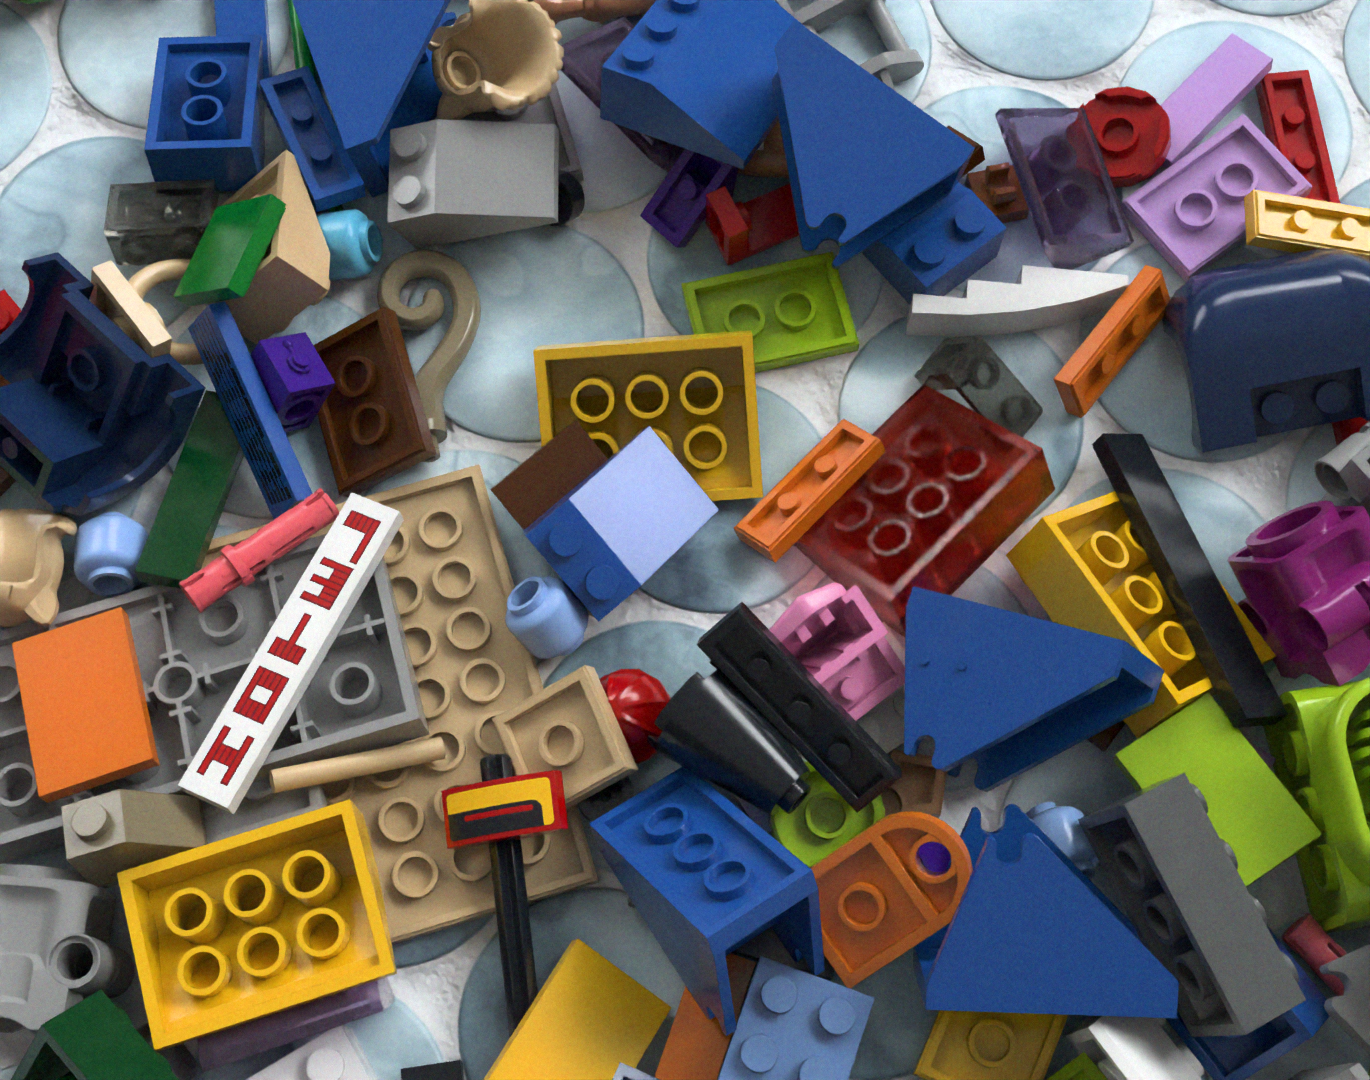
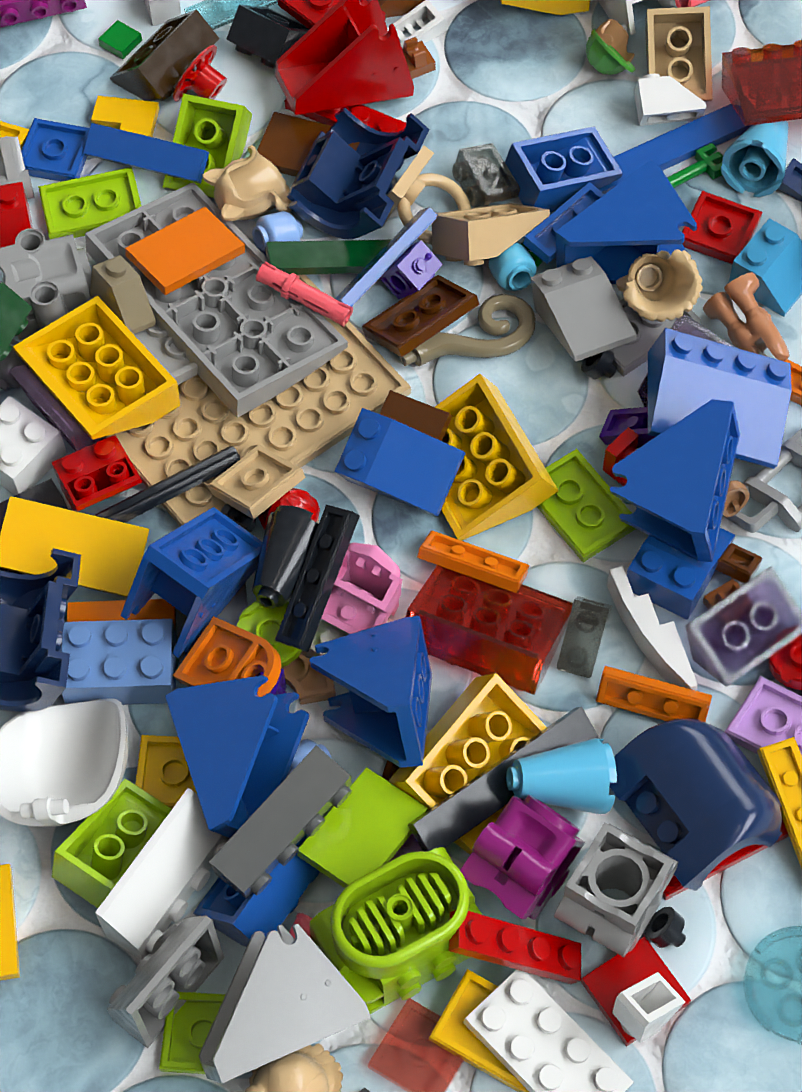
camera: 70 degrees right, 10 degrees down
(230, 251) = (469, 206): green tile -> none
(291, 654) = (253, 329): white tile -> none
(356, 764) = (203, 387): tan bar -> none
(449, 991) = (95, 473): none -> red slope
(504, 809) = (206, 464): slope -> none
(546, 617) = (326, 448): light blue head -> none
(1217, 485) = (567, 776): none -> medium azure cone

